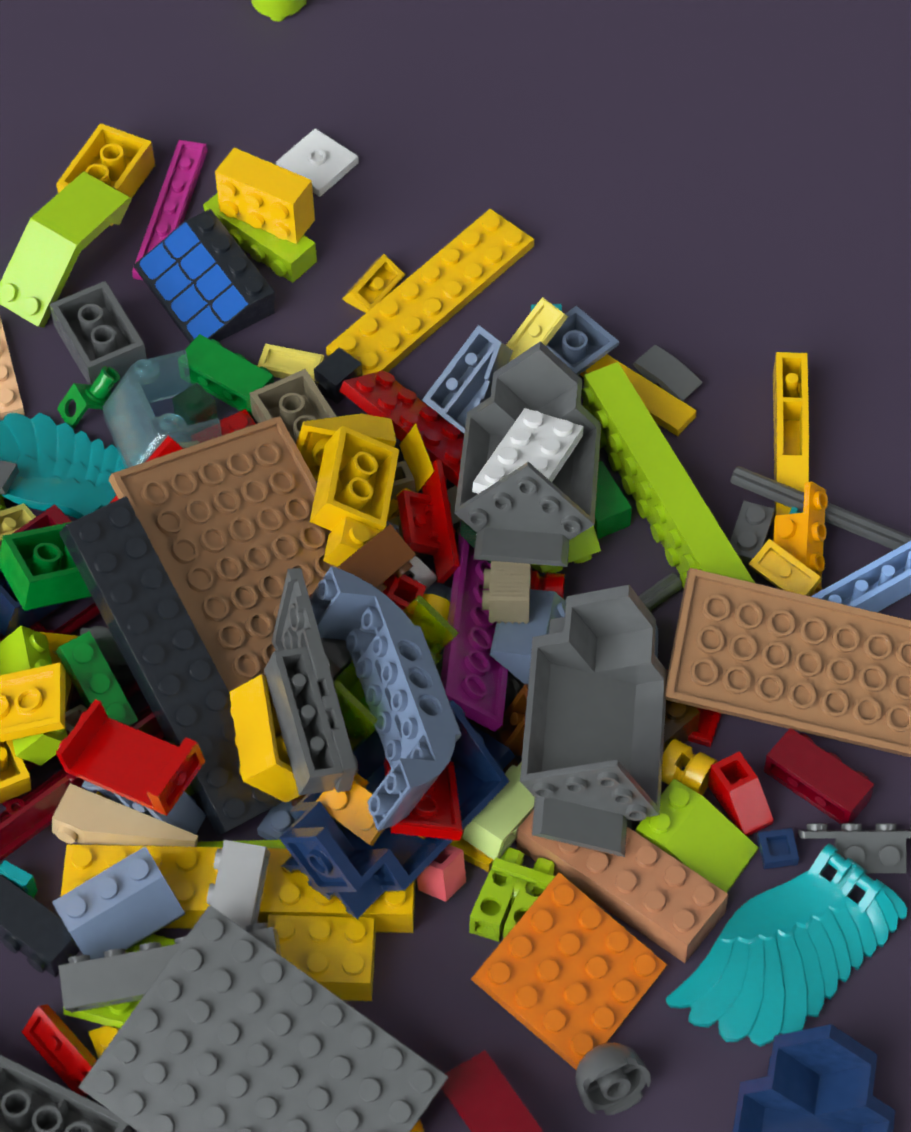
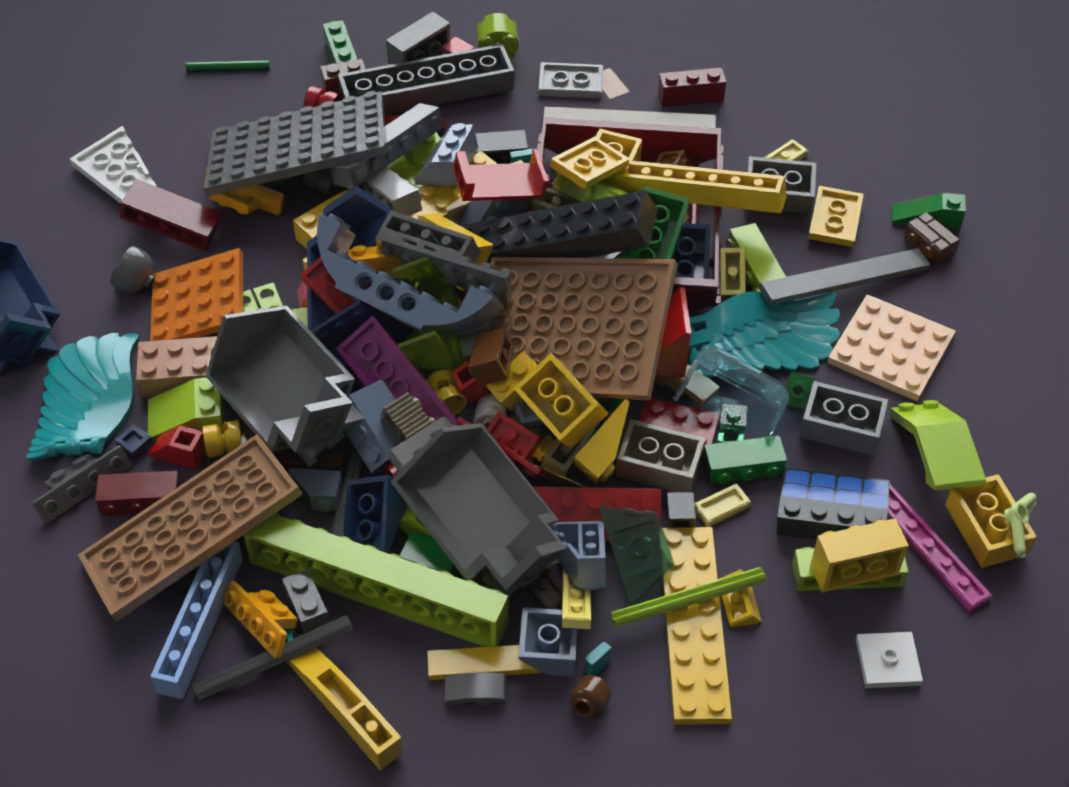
camera: 135 degrees right, 5 degrees down
(98, 136) = (1017, 517): none -> yellowish green piece
(414, 363) = (638, 548): none -> clear green wing
(422, 297) = (687, 597): none -> lime axle
(532, 439) = (477, 498): white plate -> none
(583, 293) = (590, 696): none -> reddish brown head
(619, 559) = (373, 511): none -> dark blue slope
(784, 570) = (254, 577): yellow plate -> none

